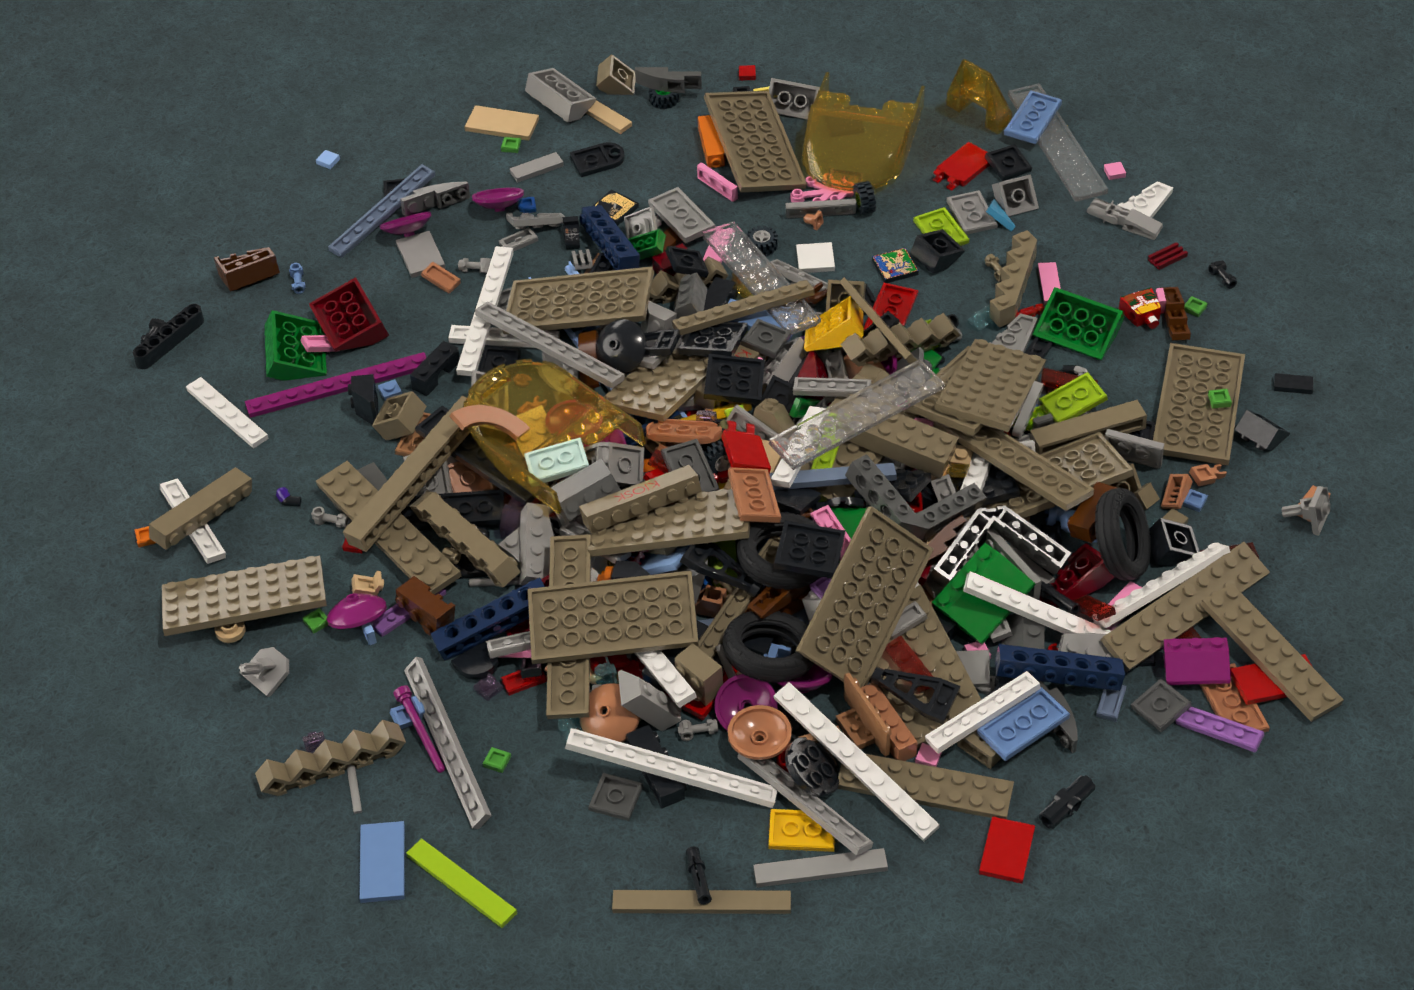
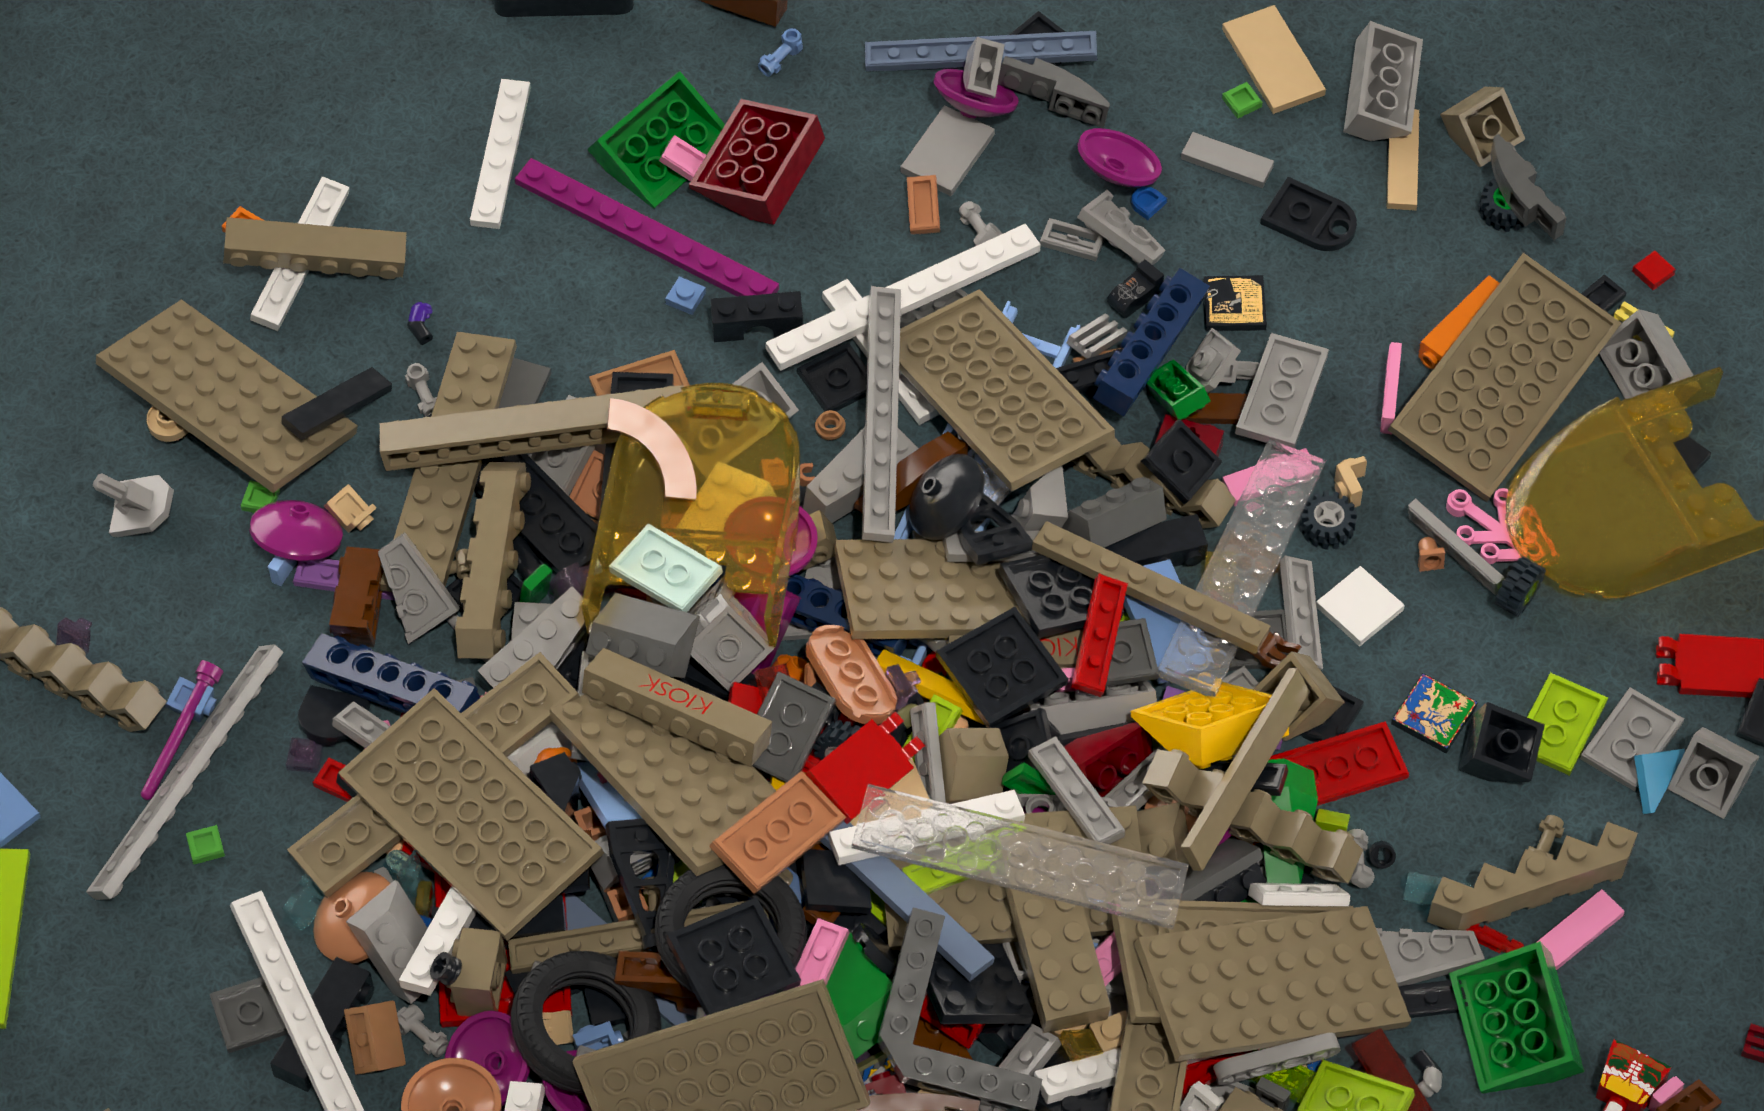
camera: 50 degrees right, 10 degrees up
(301, 553) = (336, 403): none -> black tile
(354, 790) = (49, 727): light grey bar -> none
(364, 397) = (635, 282): black slope -> none
(397, 207) = (983, 67): none -> light grey slope
(399, 416) = (635, 339): dark tan brick -> none
(449, 577) = (416, 588): none -> light grey wing
(498, 529) = (536, 585): none -> green tile
(685, 746) = (375, 1037): none -> medium nougat panel
(687, 676) = (446, 968): none -> black bush
(749, 221) = (1346, 479): none -> tan bracket
(753, 335) = (1099, 635): none -> red tile
(948, 356) = (1298, 894): none -> white tile

